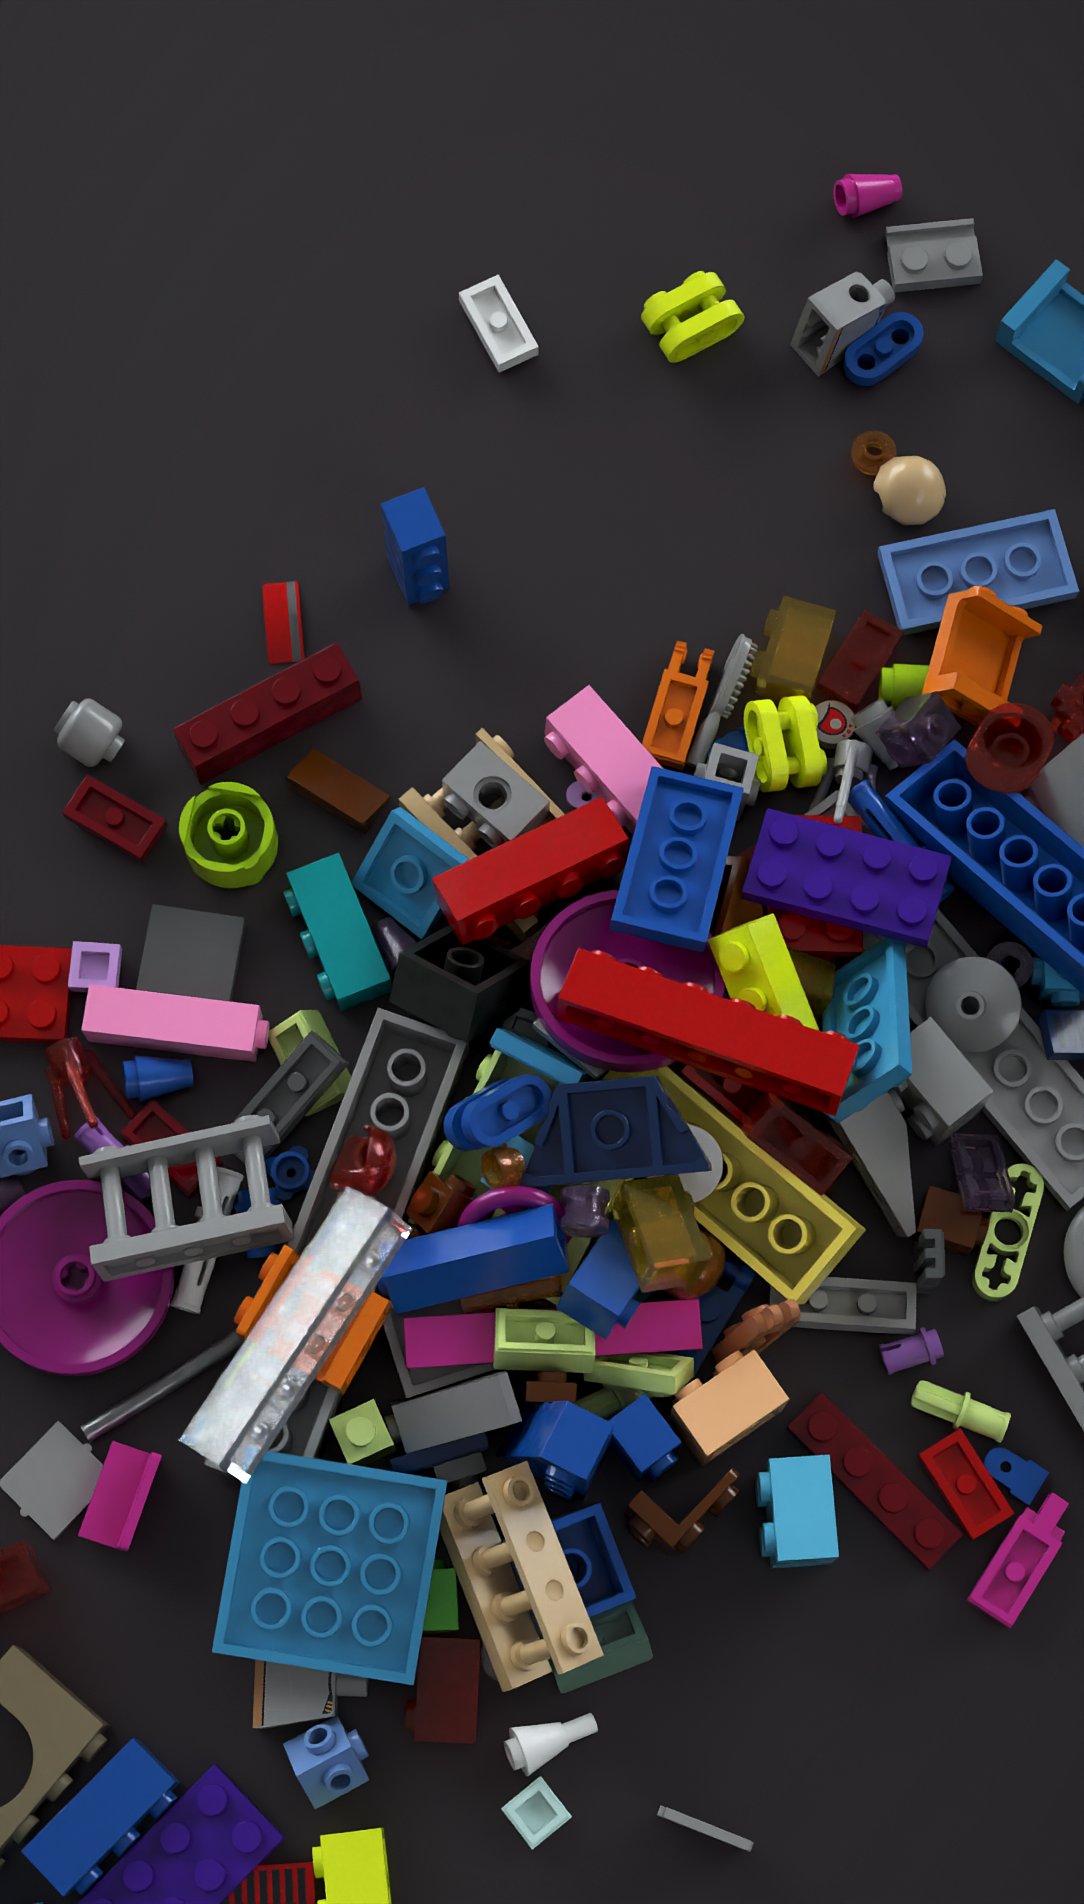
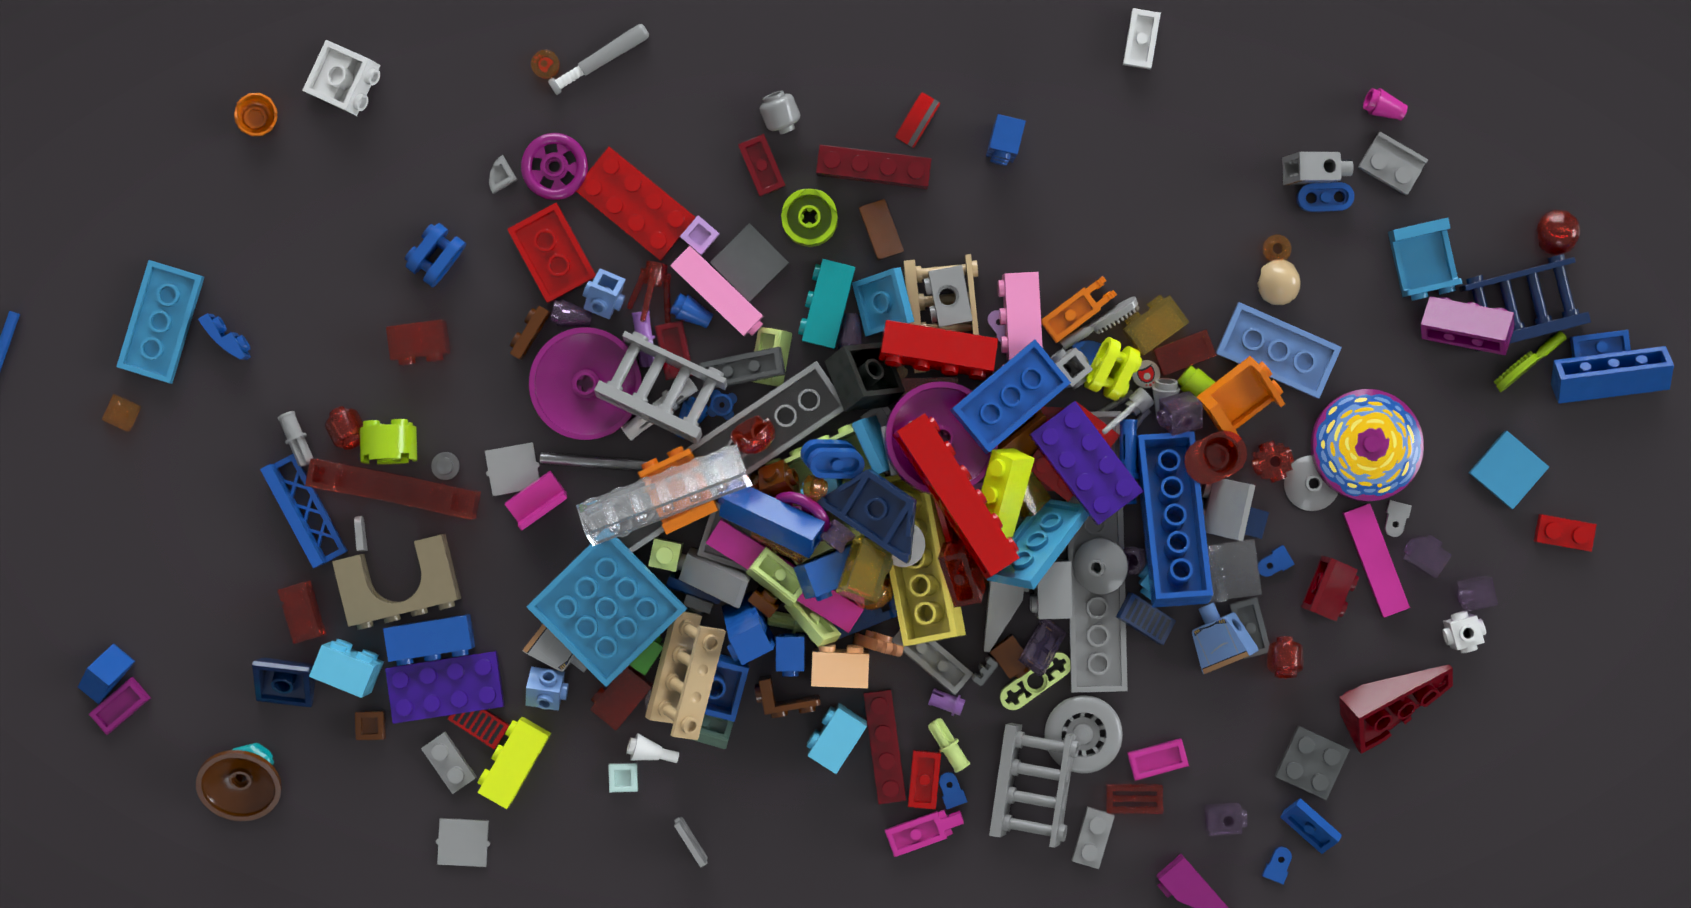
camera: 35 degrees right, 15 degrees up
(691, 316) = (1255, 98): neon yellow brick -> none

